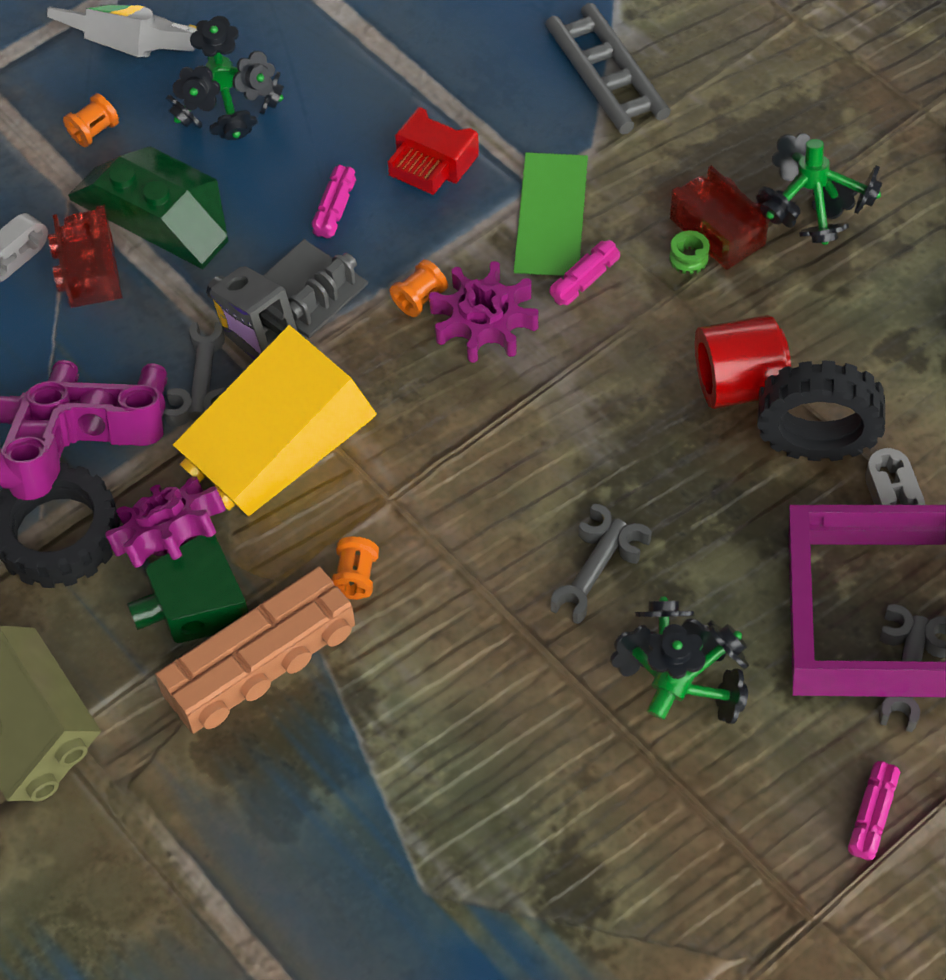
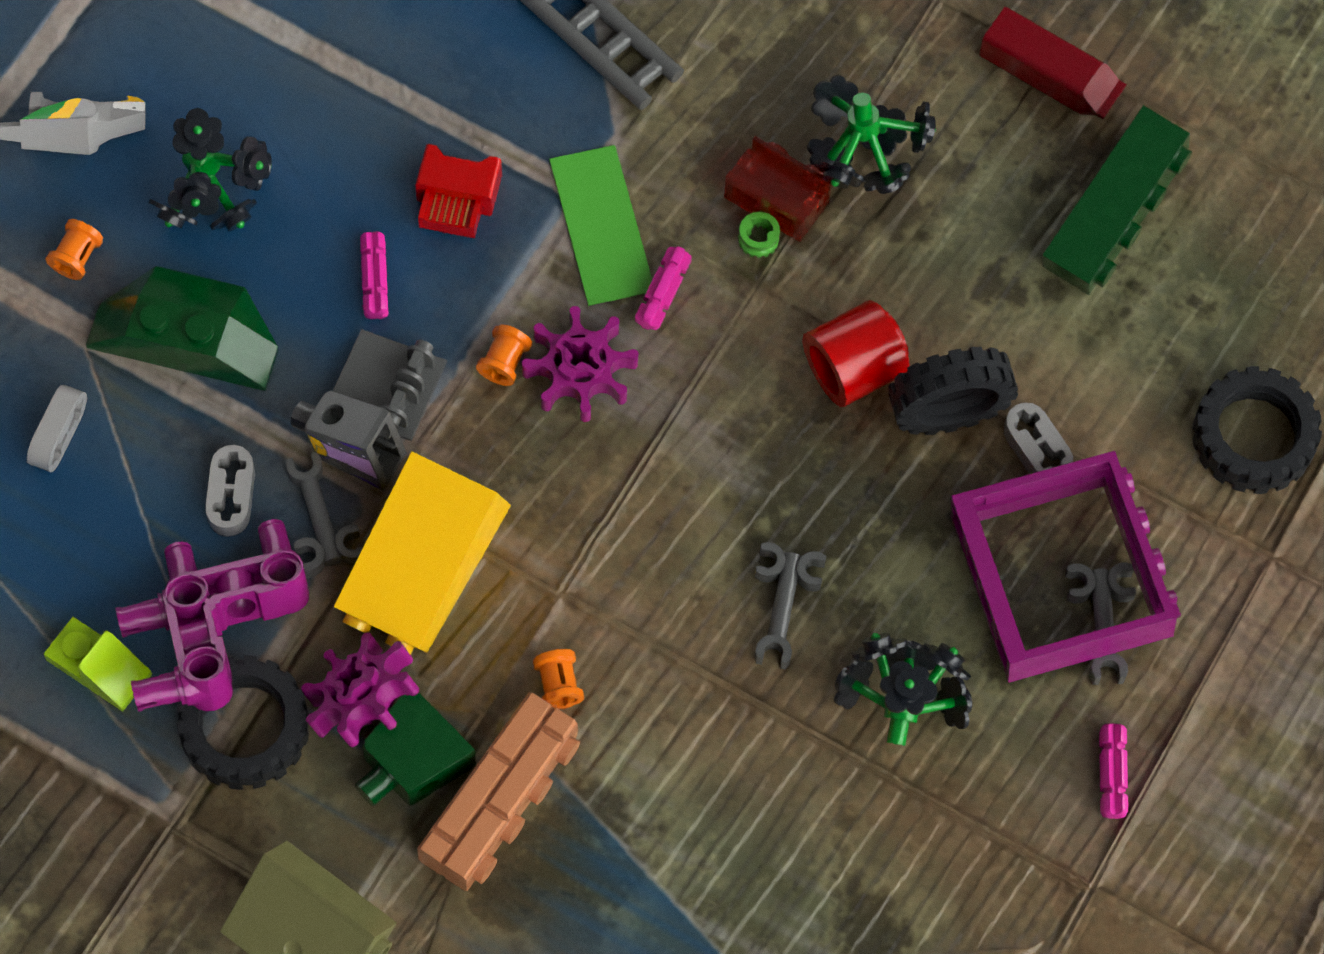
camera: 25 degrees left, 10 degrees up
(86, 258) = (144, 416): clear red hinge -> none
(127, 333) = (219, 490): none -> light grey beam

